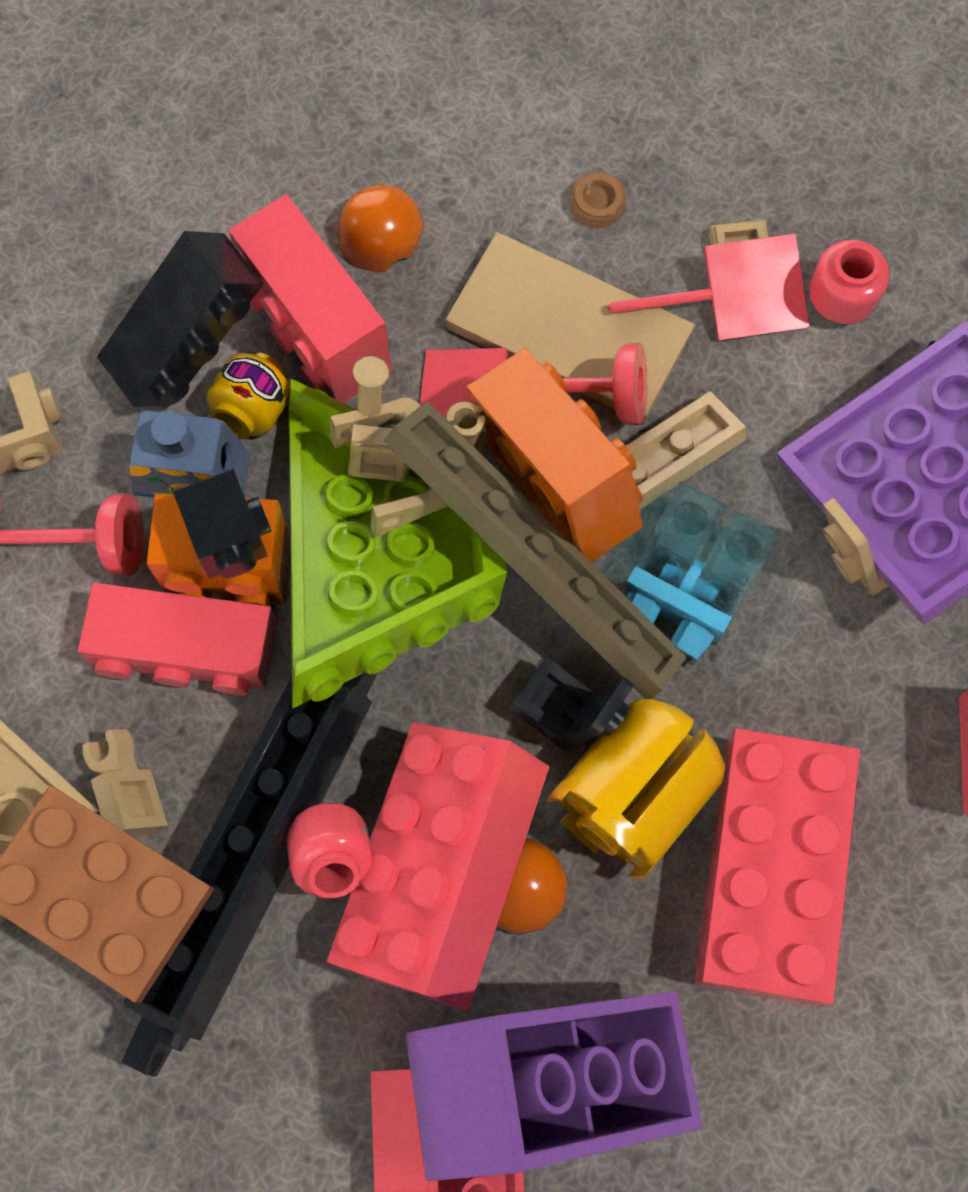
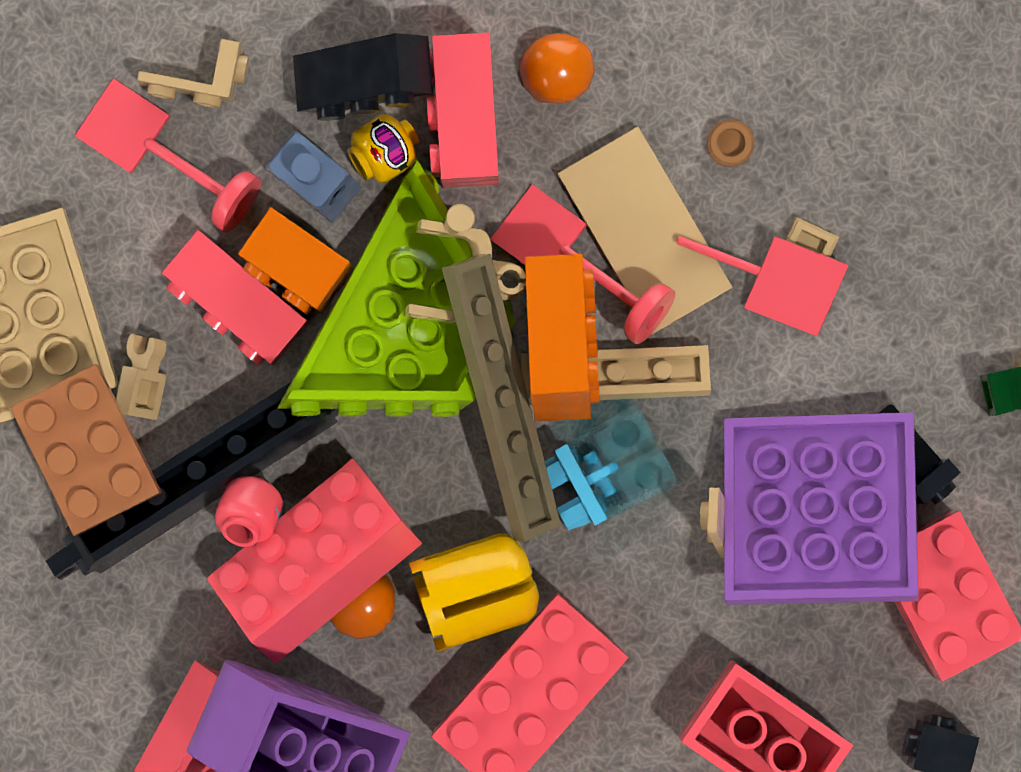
camera: 30 degrees right, 15 degrees up
(223, 525) = (301, 266): black brick -> none
(373, 457) = (439, 253): tan tile -> none
(566, 708) = (463, 508): black bracket -> none
(849, 281) = (859, 327): coral head -> none

